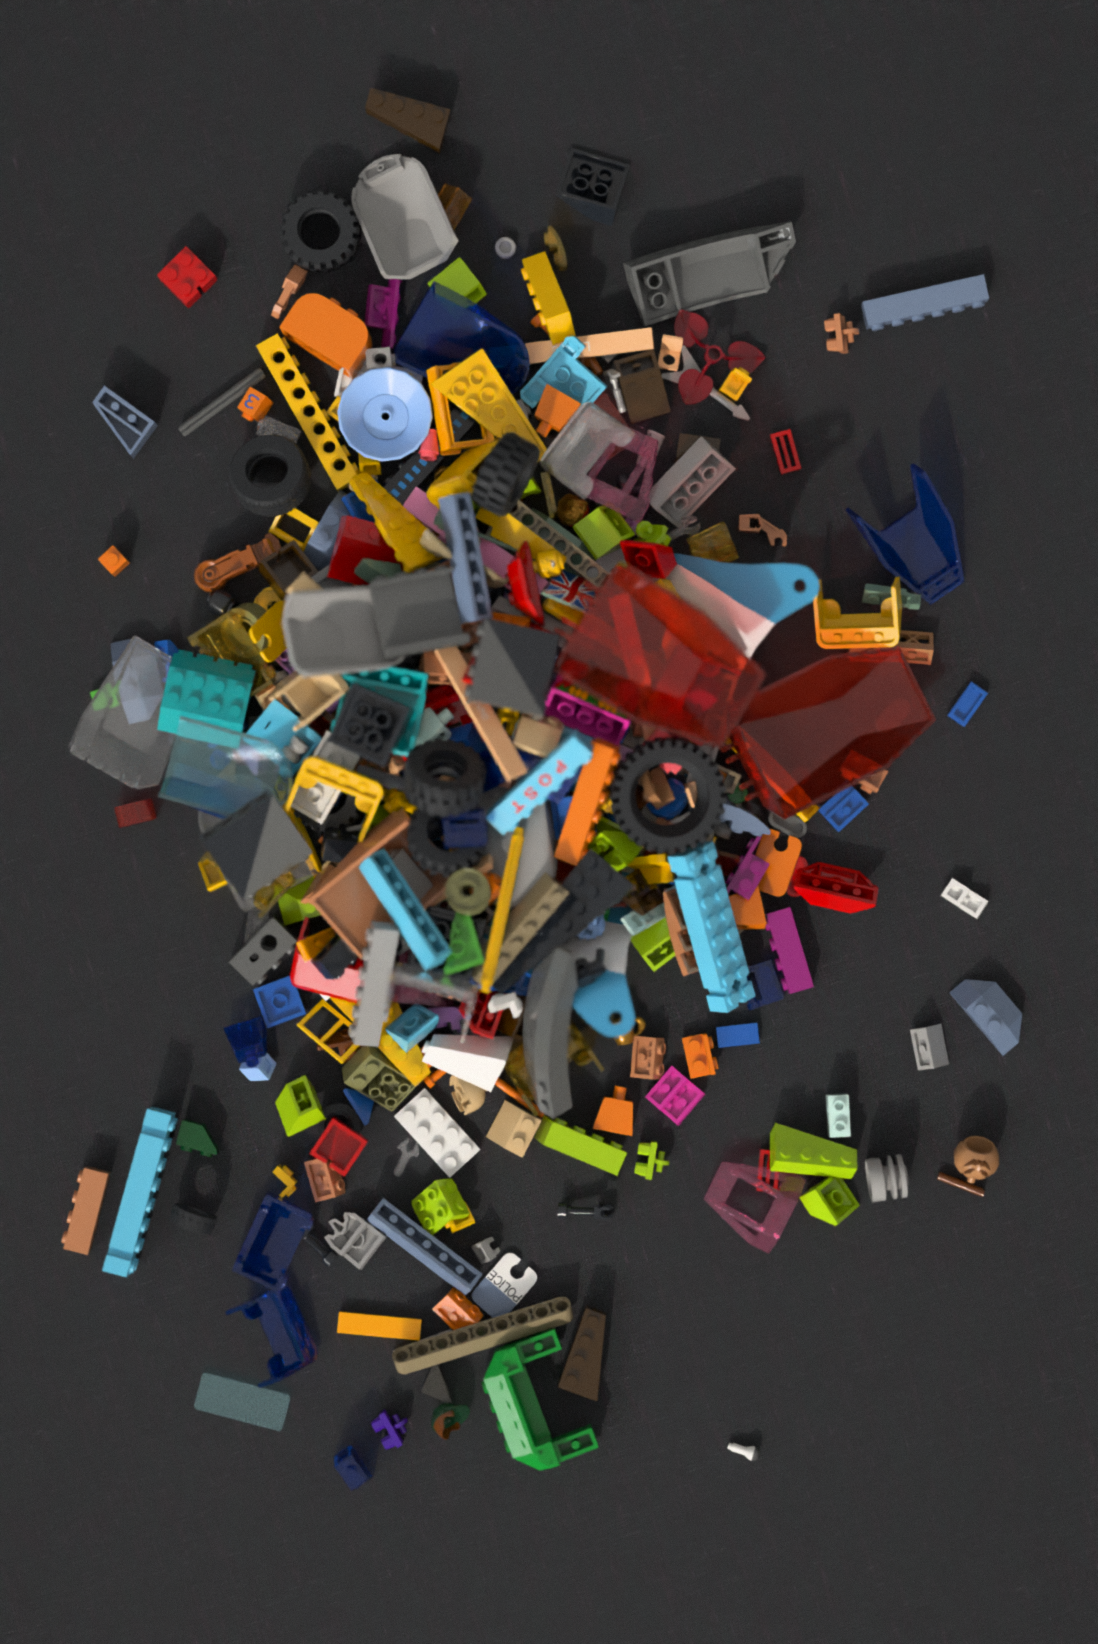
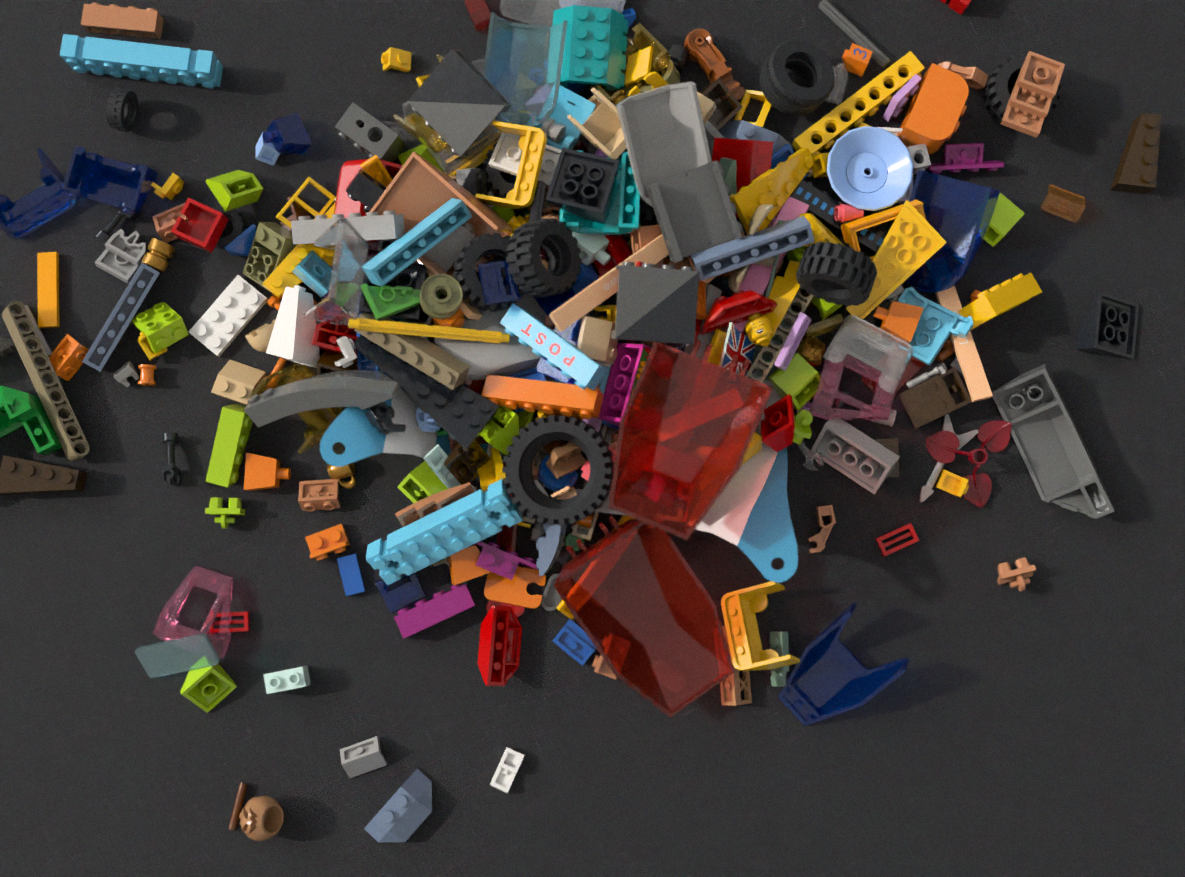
camera: 80 degrees right, 5 degrees down
(177, 911) = (396, 59): none -> yellow bracket
(196, 1136) = (198, 105): dark green slope -> none
(233, 645) = (638, 65): none -> yellow piece
(279, 1002) = (326, 159): blue plate -> none
(311, 367) = (901, 97): none -> lavender plate
(330, 225) = (1032, 94): none -> nougat slope
(360, 1199) = (158, 255): none -> pearl gold wheel
(402, 217) = (1048, 165): light grey windscreen -> none
(405, 1156) = (204, 290): clear bar -> none
(490, 1227) = (146, 375): none -> orange bush
(499, 1290) = (92, 392): piece -> none
(505, 247) = (1037, 258): light grey tile -> none
(554, 242) = (1048, 301): clear yellow slope -> none
(564, 529) = (792, 341): none -> lavender tile
(670, 346) = (975, 419): light nougat bracket -> none
(675, 1095) = (288, 525): dark pink slope -> none
(713, 544) = (801, 484): clear yellow plate -> none
(797, 1225) = (177, 655): none -> clear light blue piece
(809, 1155) = (246, 656): lime wedge -> none
(886, 1178) = (232, 734): light grey wheel -> none
(924, 302) = (1060, 649): sand blue brick -> none
(967, 704) = (690, 745): blue tile -> none

